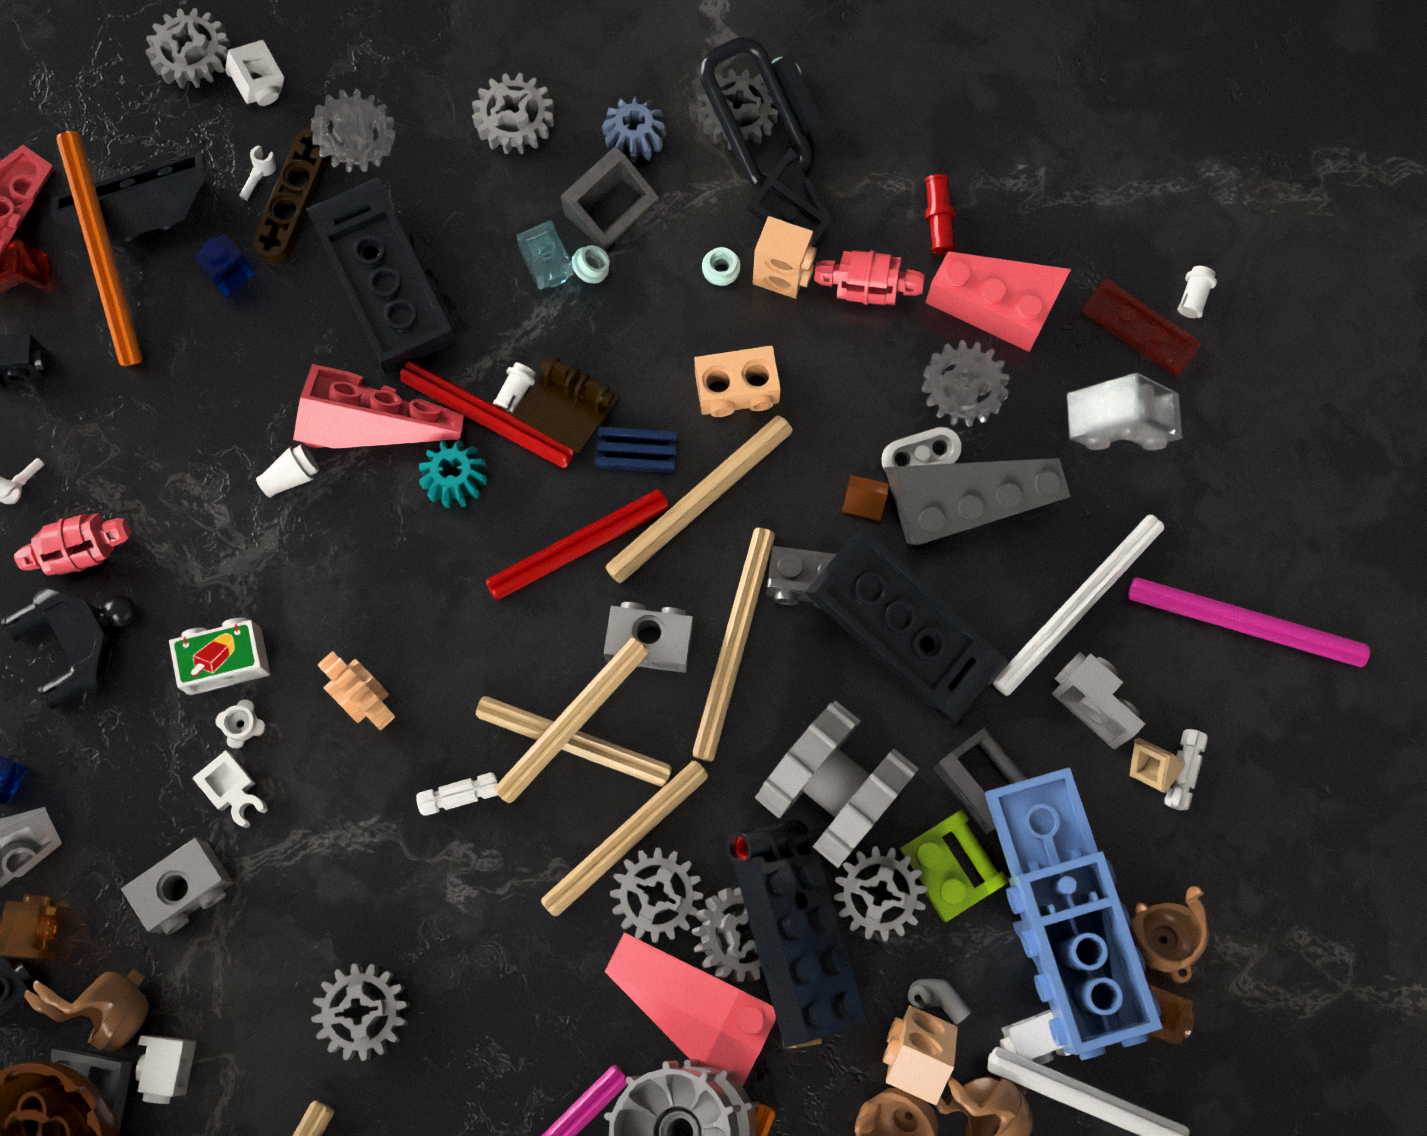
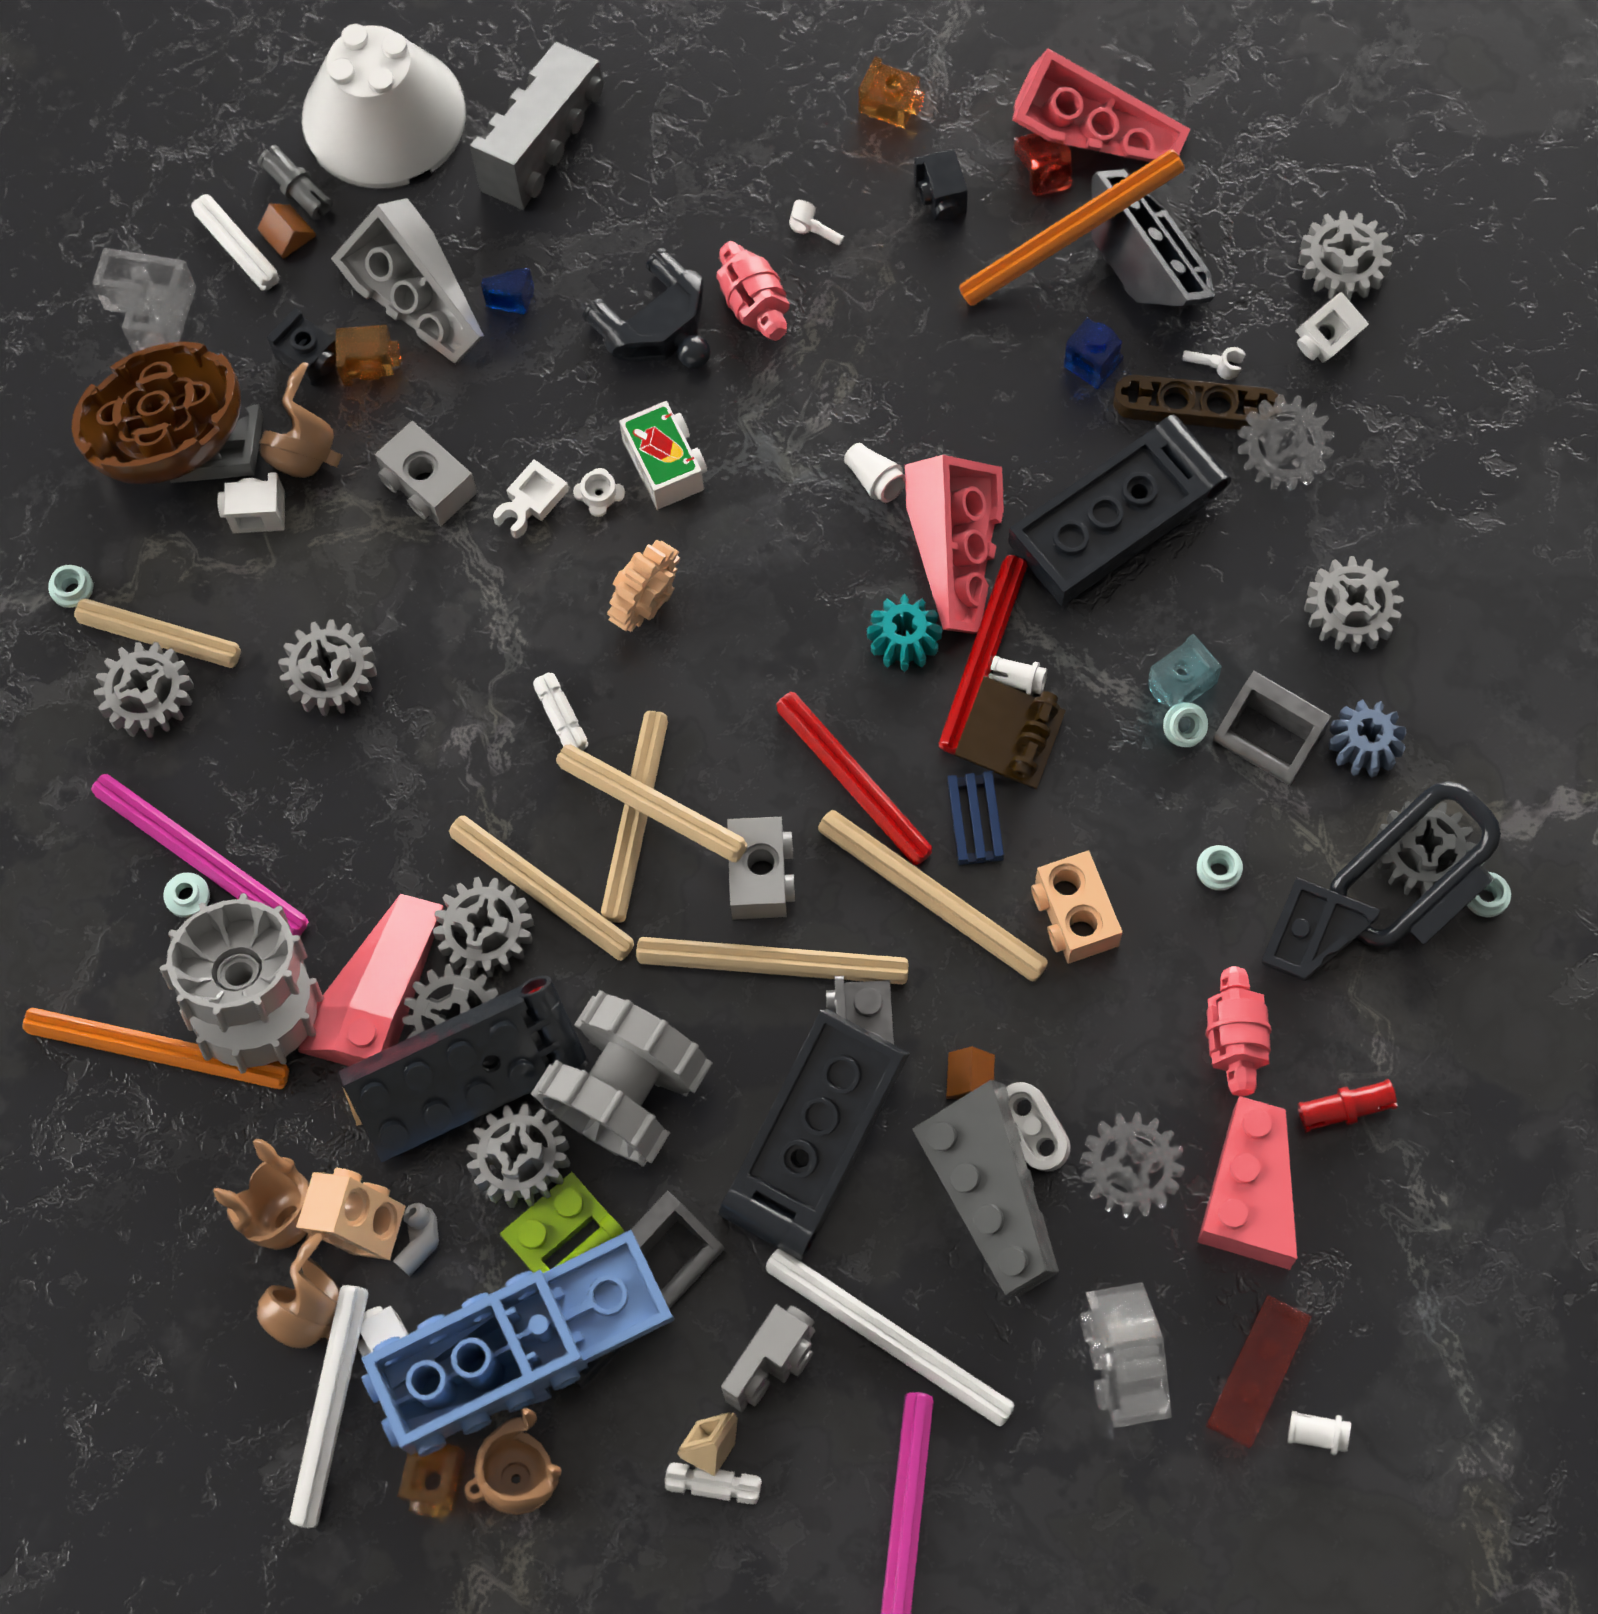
camera: 85 degrees right, 5 degrees down
(783, 257) = (1234, 925): light nougat brick -> none

